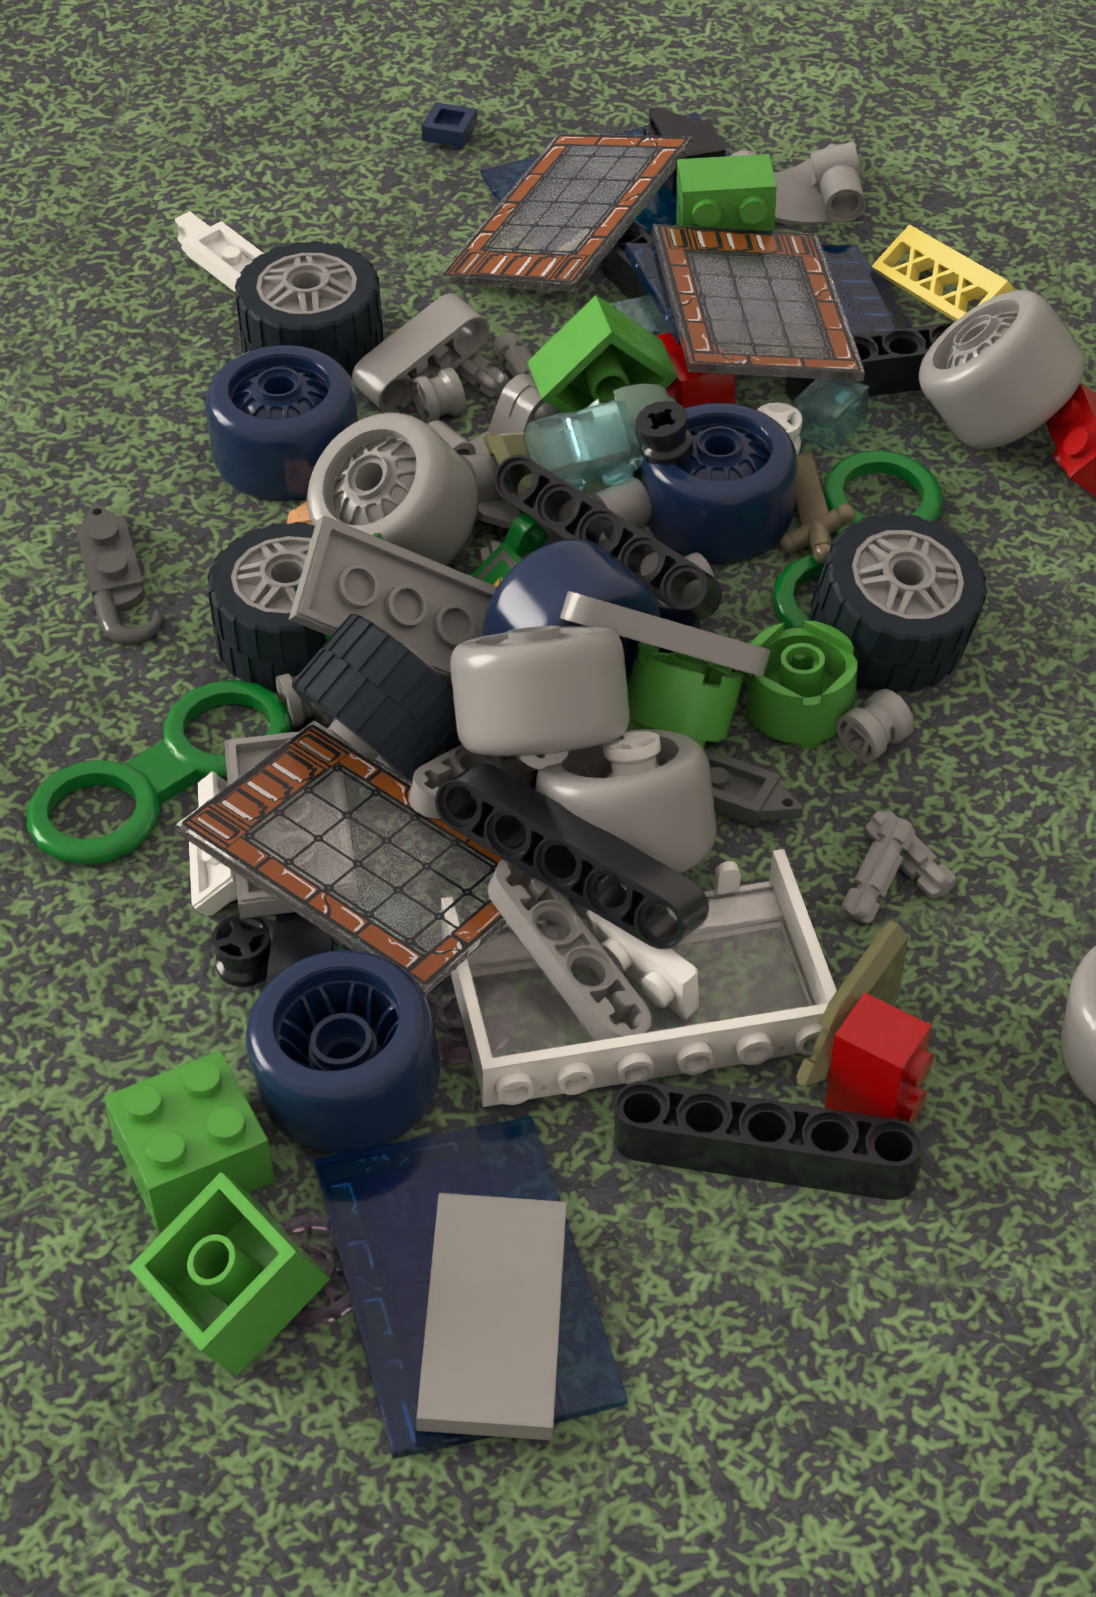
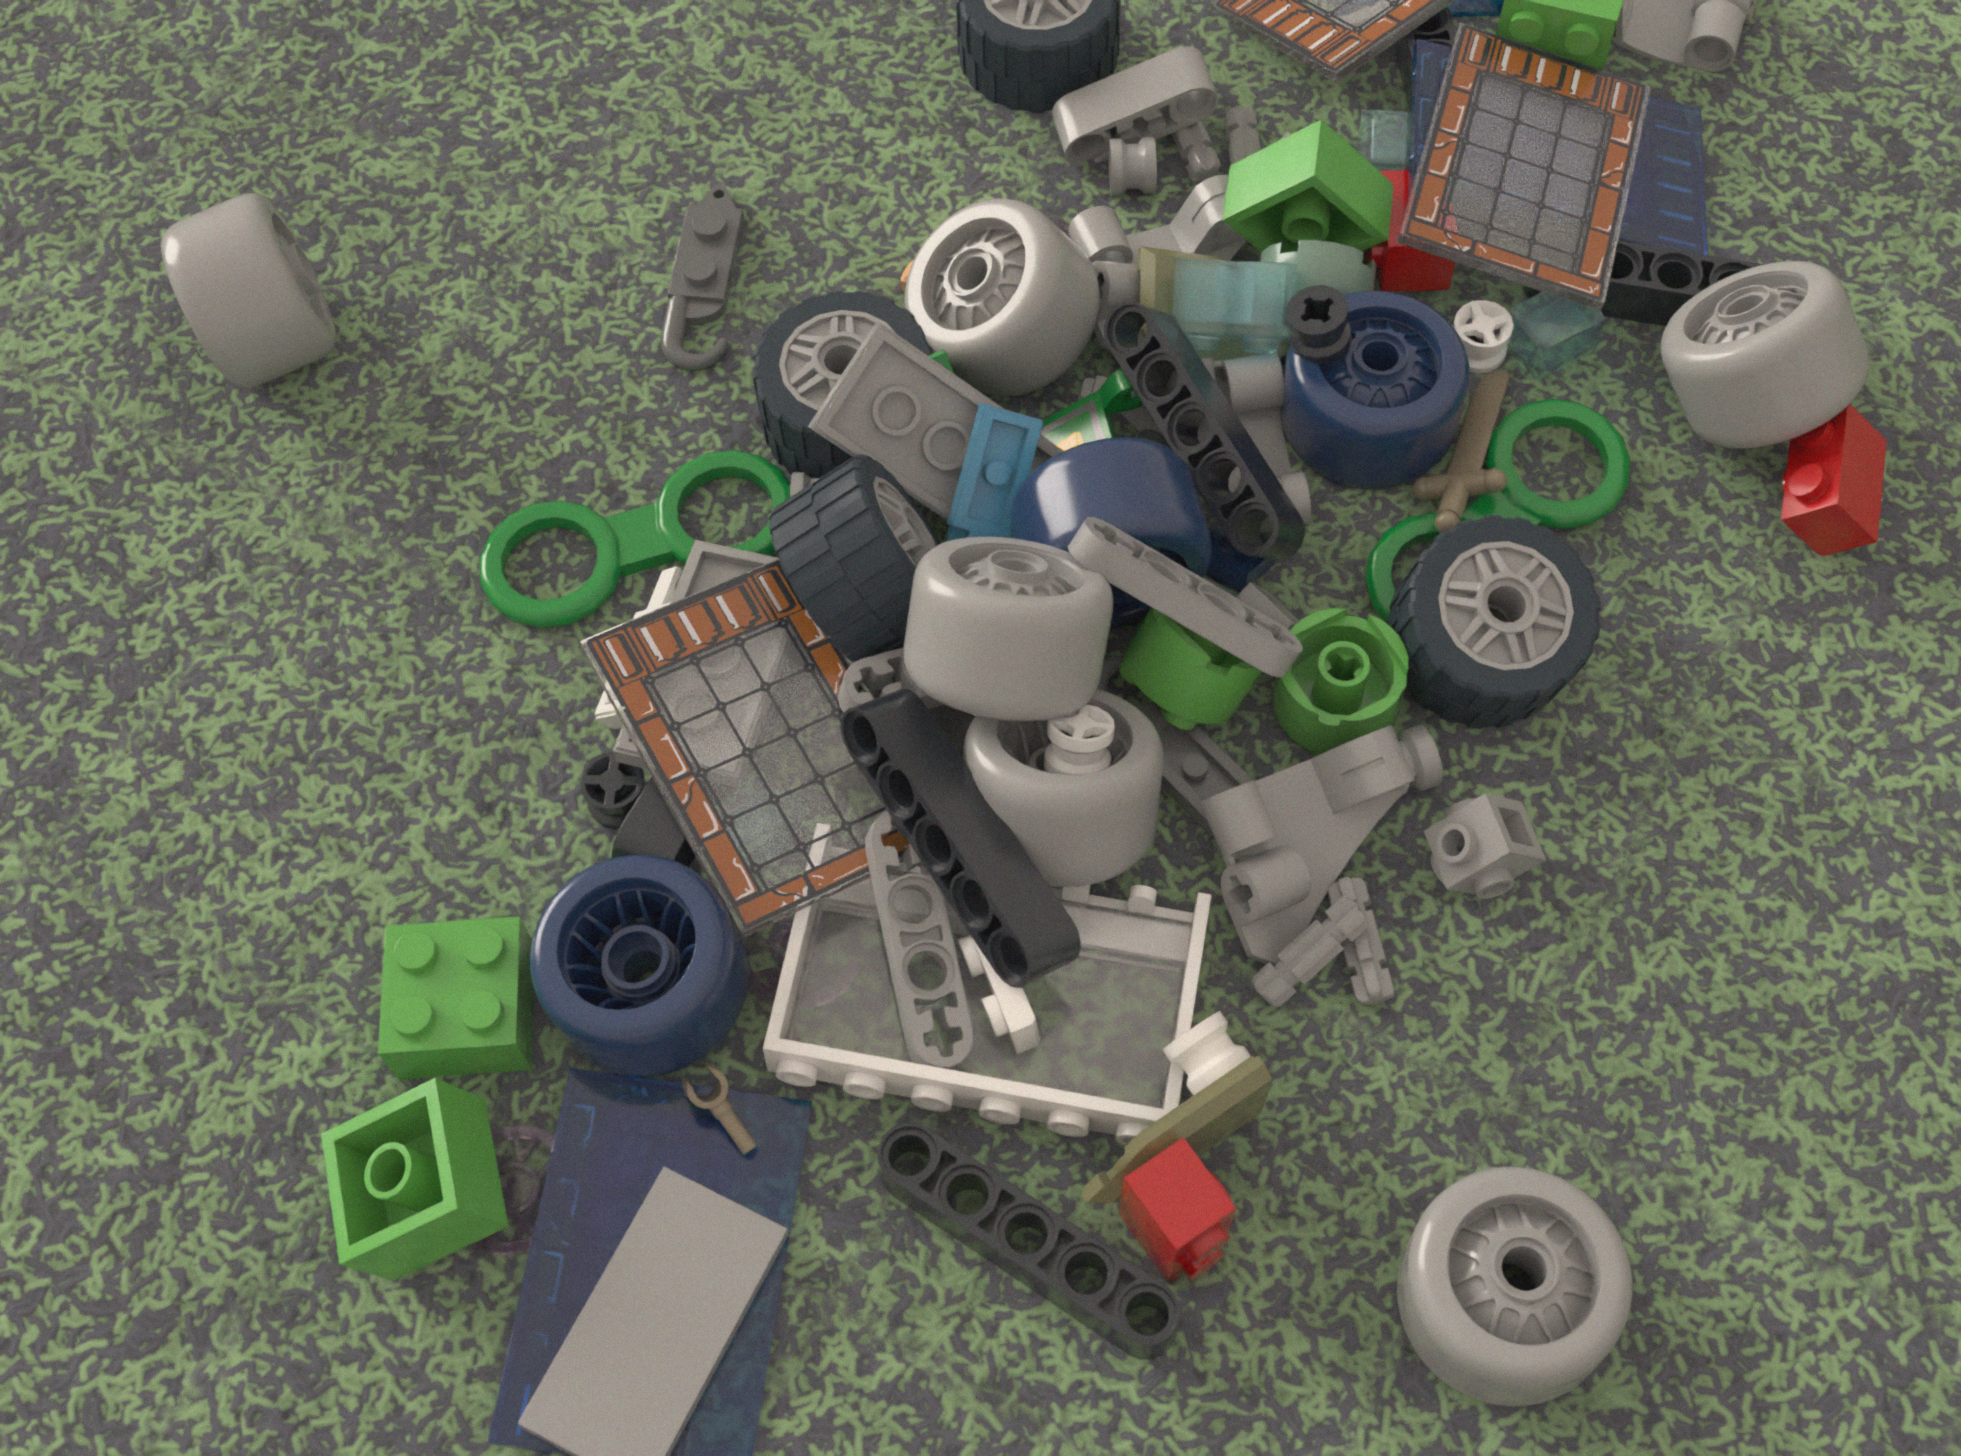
camera: 25 degrees right, 15 degrees up
(275, 417) = (941, 142): dark blue wheel -> none
(453, 606) = (992, 472): none -> dark azure hinge
(458, 1134) = (722, 1109): none -> dark tan hand
(827, 787) = (1297, 832): none -> light grey panel
(842, 943) = (1206, 1052): none -> white wheel
(947, 268) = (1788, 197): light yellow fence -> none
(970, 754) = (1483, 845): none -> light grey brick

